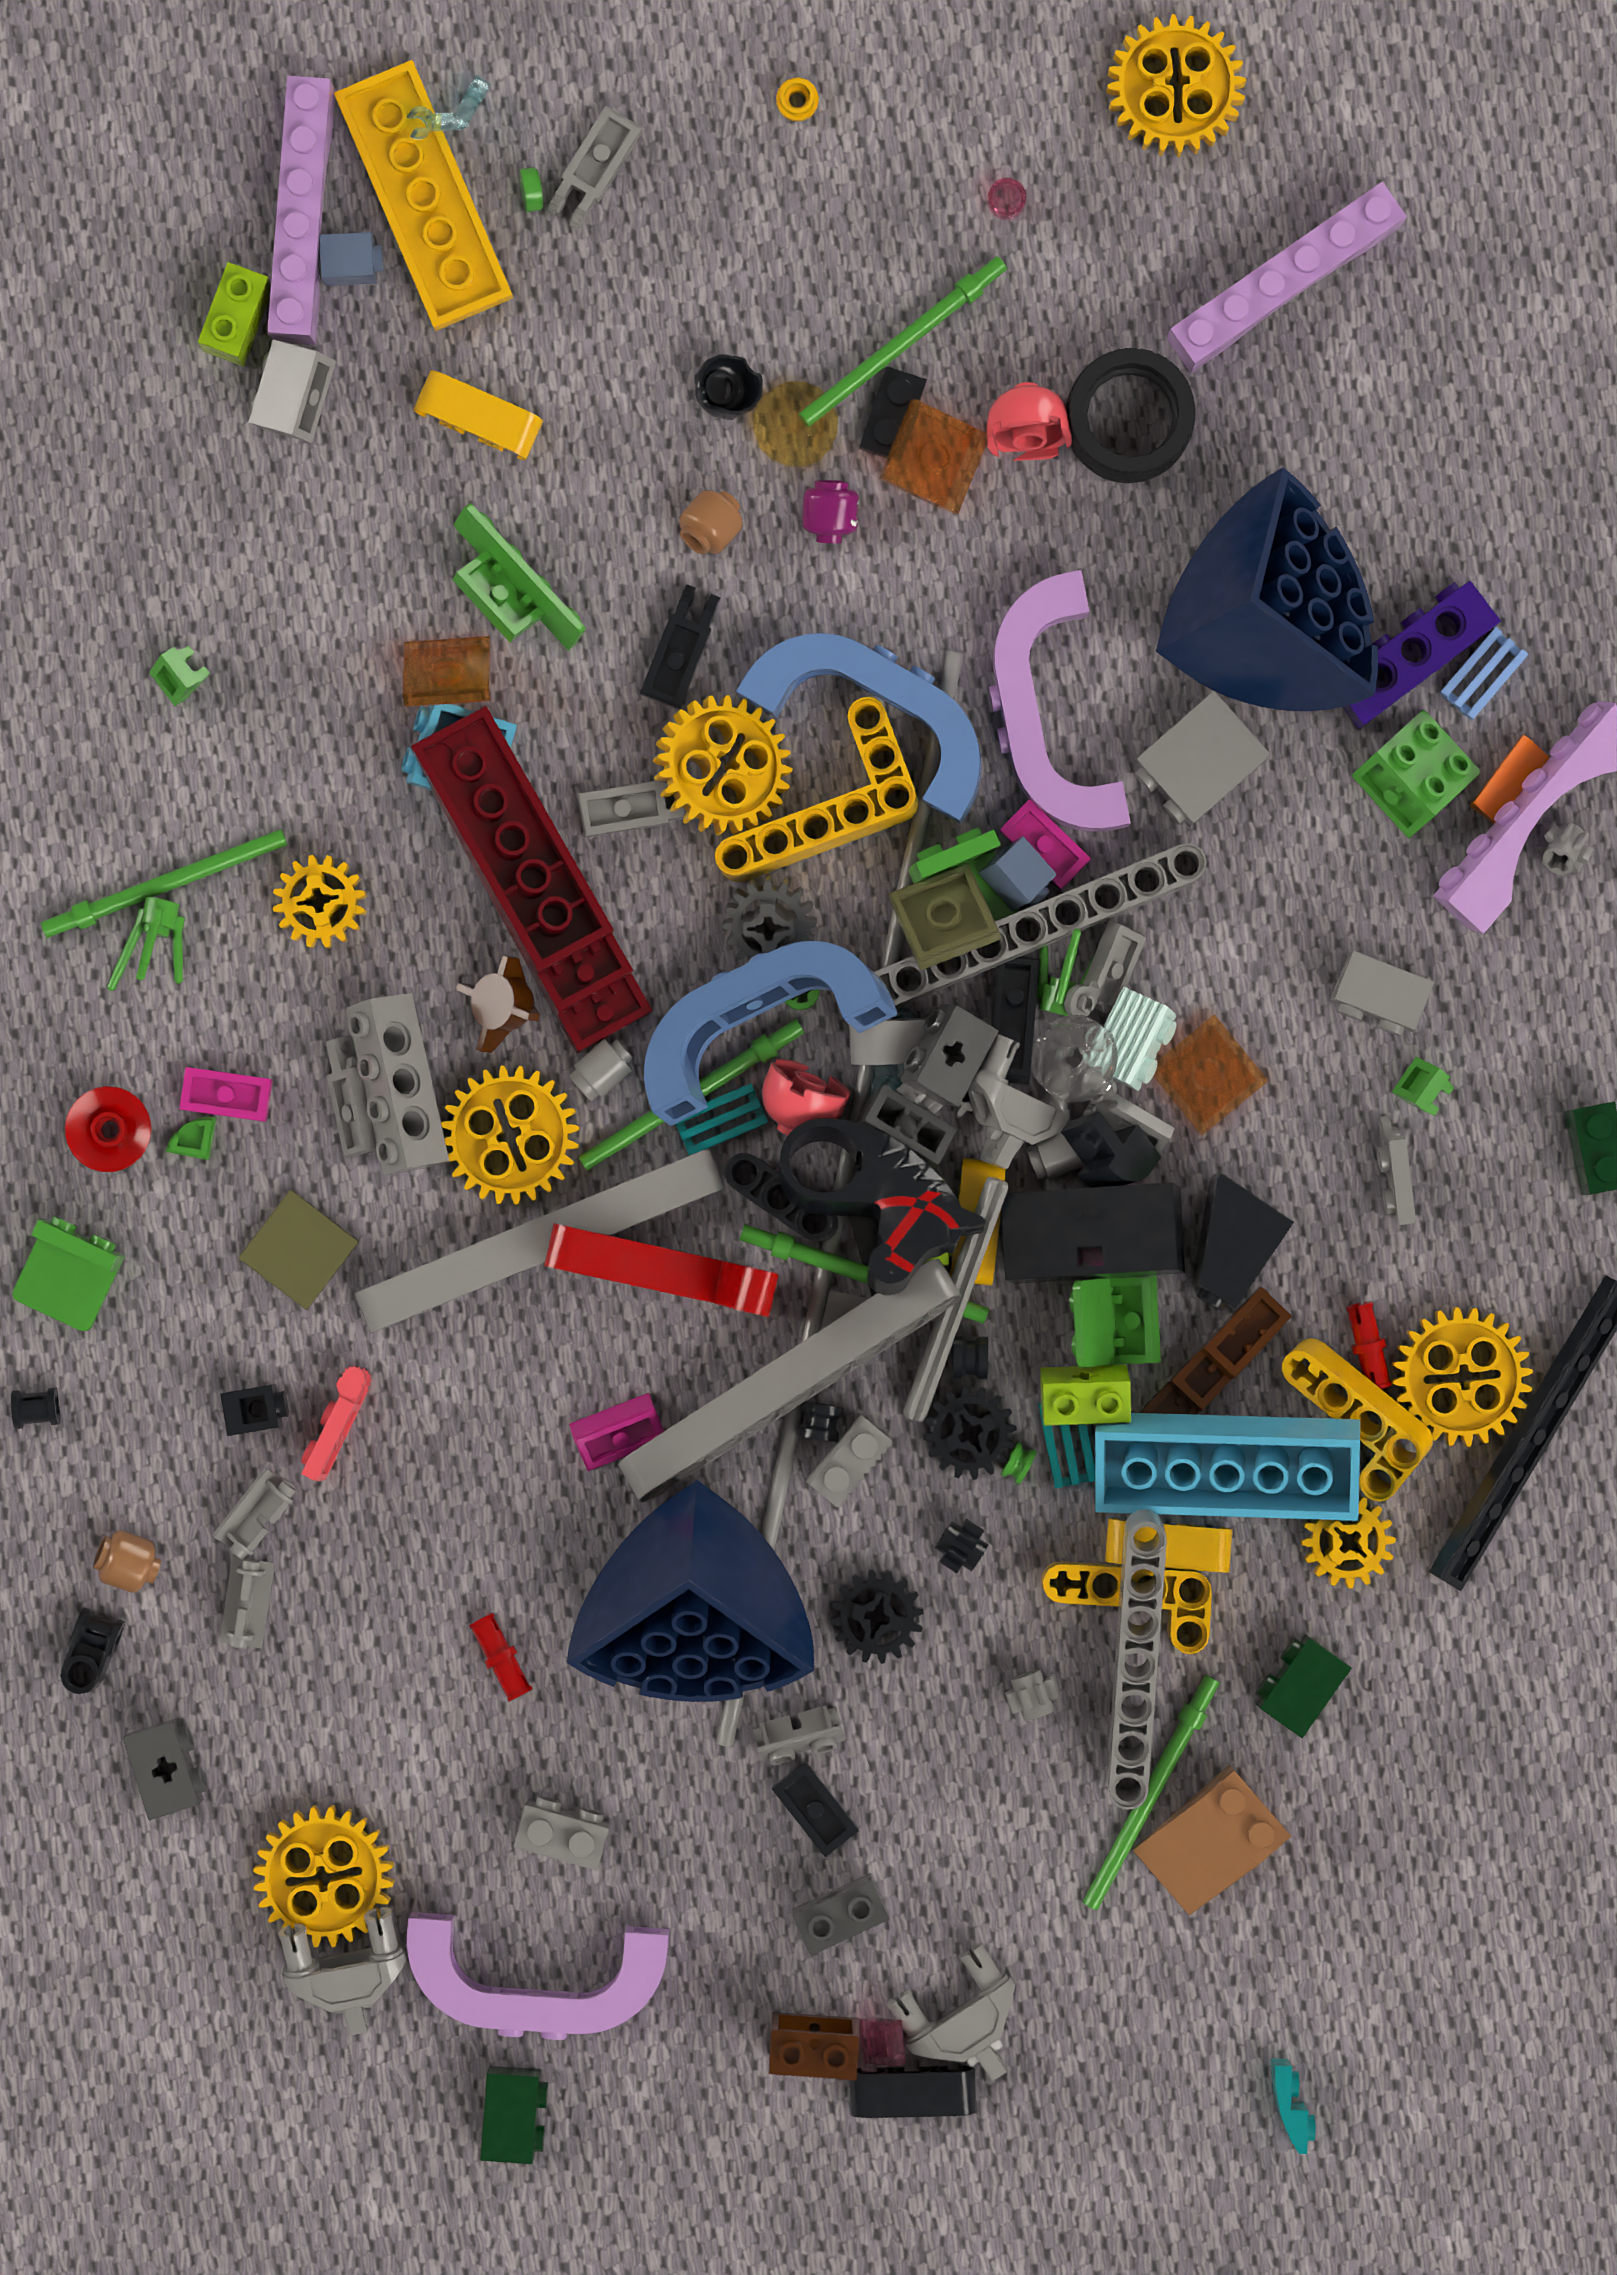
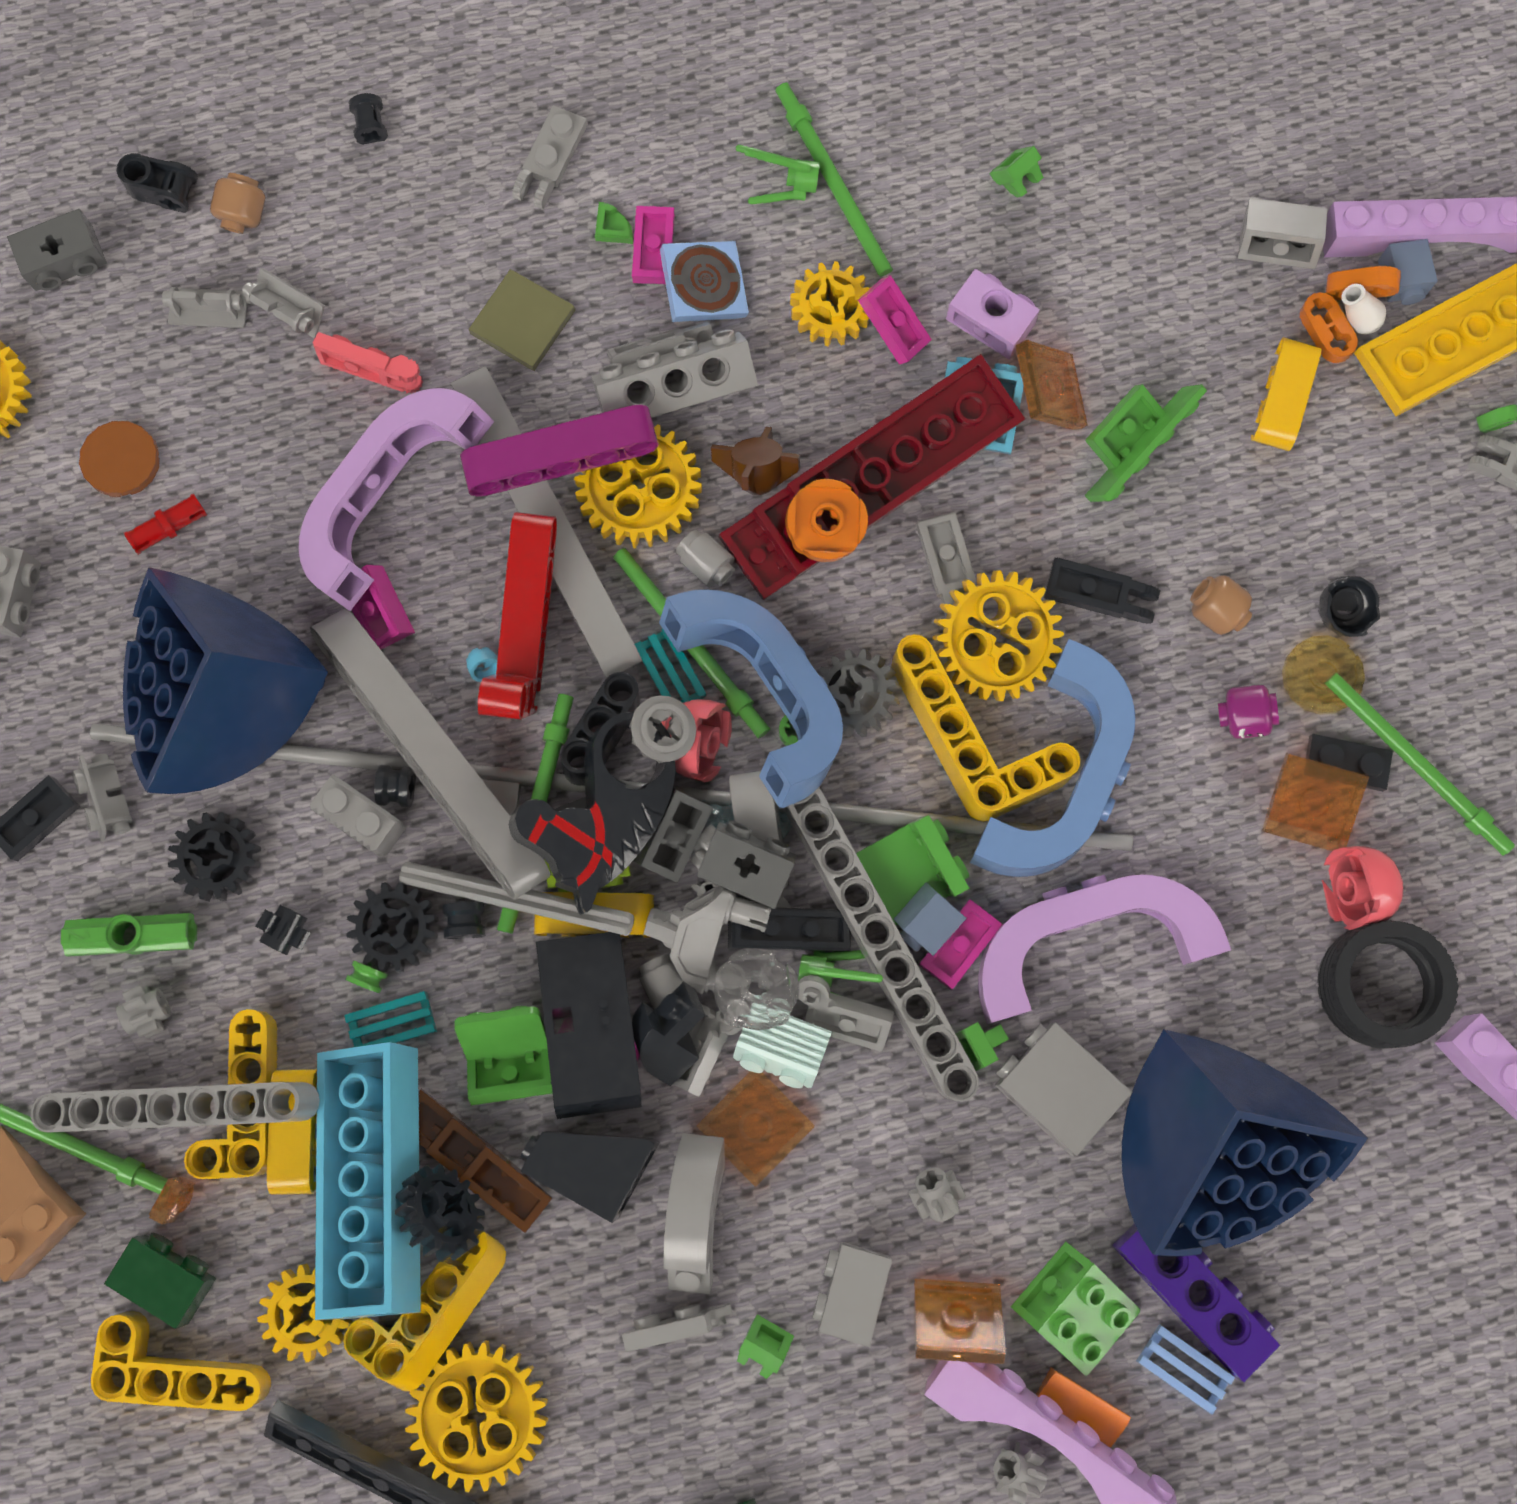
camera: 85 degrees right, 10 degrees down
(67, 1273) = (487, 133): bright green bracket -> none
(86, 1123) = (609, 137): red dish -> none
(97, 1201) = (550, 154): none -> light grey hinge
(235, 314) = (1340, 176): lime brick -> none
(238, 1414) = (372, 281): black brick -> none
(278, 1041) = (703, 281): none -> tile
(350, 834) = (894, 319): none -> dark pink plate
(362, 312) = (1377, 280): none -> orange beam
(375, 714) = (997, 332): none -> lavender brick
(392, 316) = (1363, 310): none -> white cone
(399, 345) = (1332, 326): none -> orange beam
(417, 1707) = (119, 458): none -> dark orange tile
(473, 1433) = (366, 475): none -> lavender arch
(474, 1215) = (559, 450): none -> magenta beam
(606, 919) = (843, 505): none -> orange plate
(688, 1322) = (480, 656): none -> medium azure hinge
(799, 1109) = (681, 727): none -> light grey gear
(944, 916) = (879, 850): olive tile -> none
(950, 1736) = (106, 935): none -> bright green piece
(1085, 1395) = (428, 1032): lime brick -> none
(1149, 837) = (980, 1044): none -> bright green tile
(1226, 1670) = (172, 1200): none -> clear orange tile
(1267, 1392) = (440, 1213): none -> black gear
(1288, 1143) = (692, 1212): none -> light grey arch
(1293, 898) = (937, 1194): none -> light grey gear
(1368, 1343) = (503, 1315): red pin -> none
(1394, 1667) = (181, 1373): none -> yellow beam
(1417, 891) = (958, 1321): none -> clear orange tile

